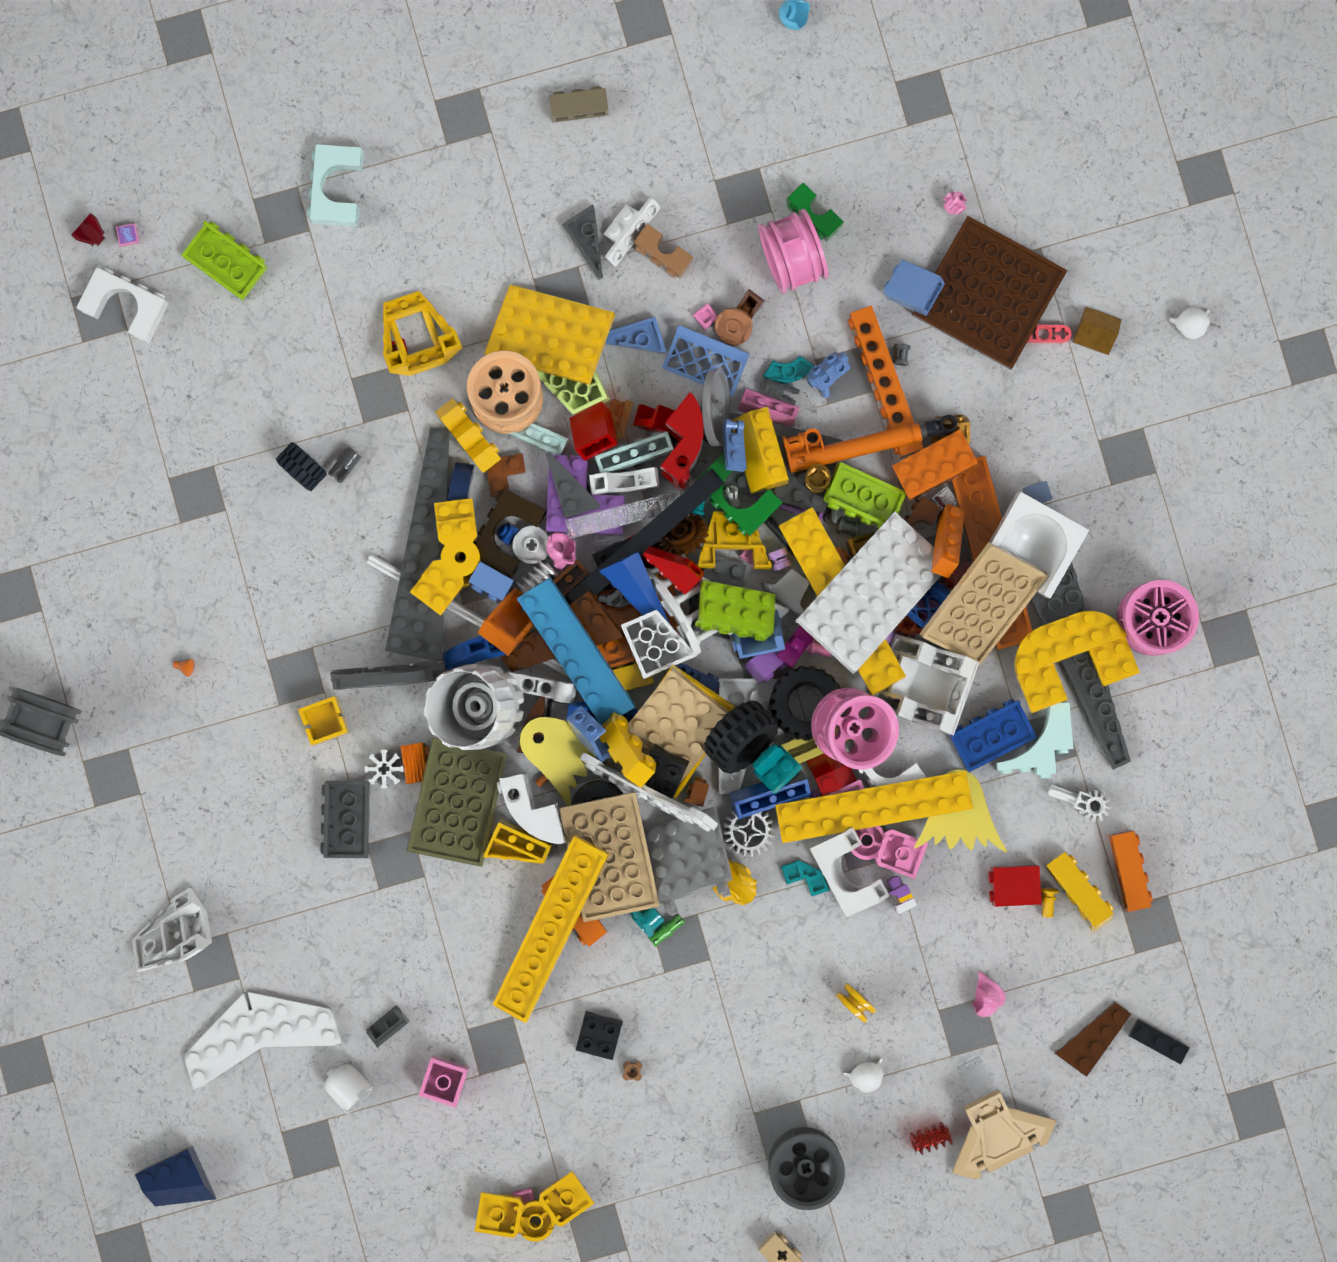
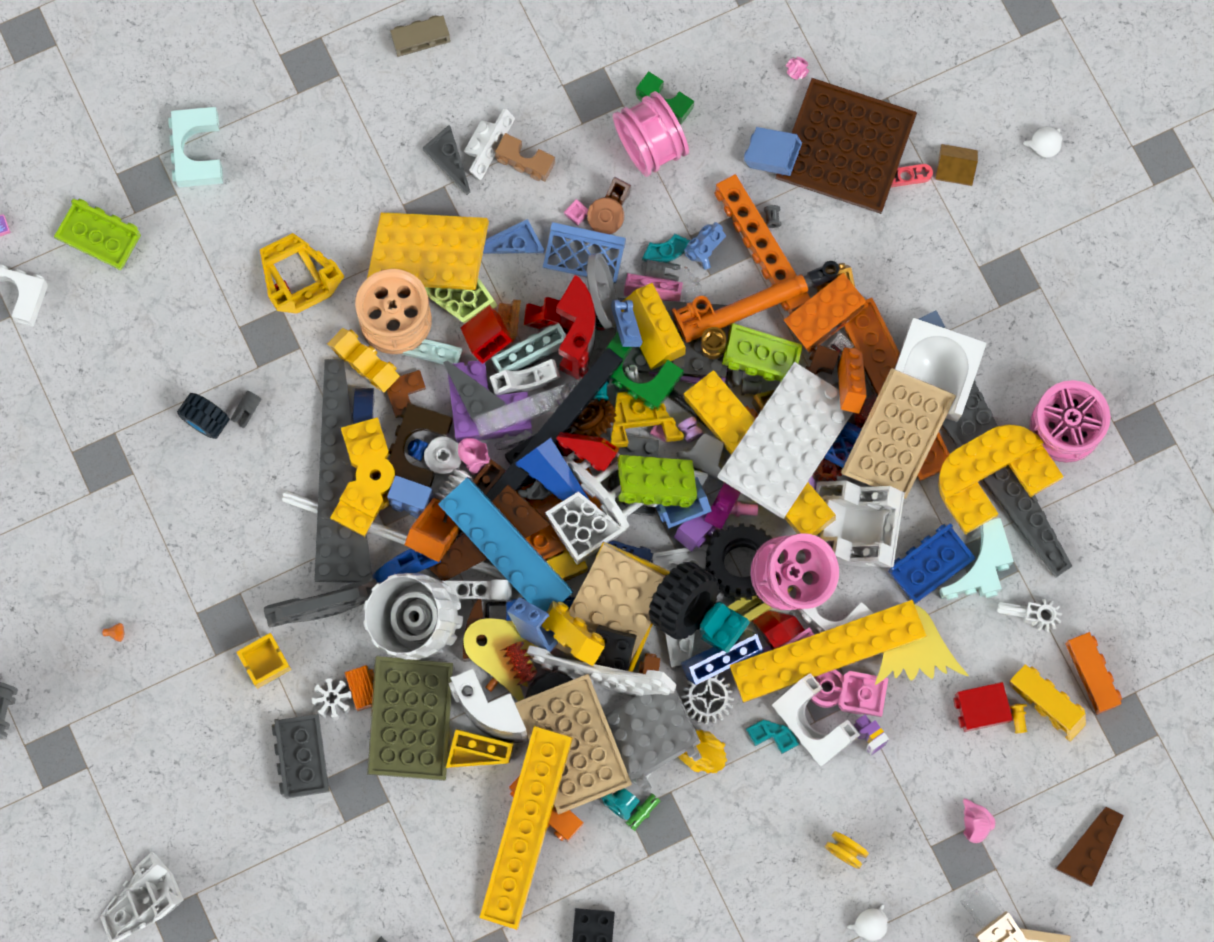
camera: 15 degrees left, 10 degrees down
(572, 765) = (519, 662): none -> clear red piece
(1158, 1041) = (1157, 838): black plate -> none

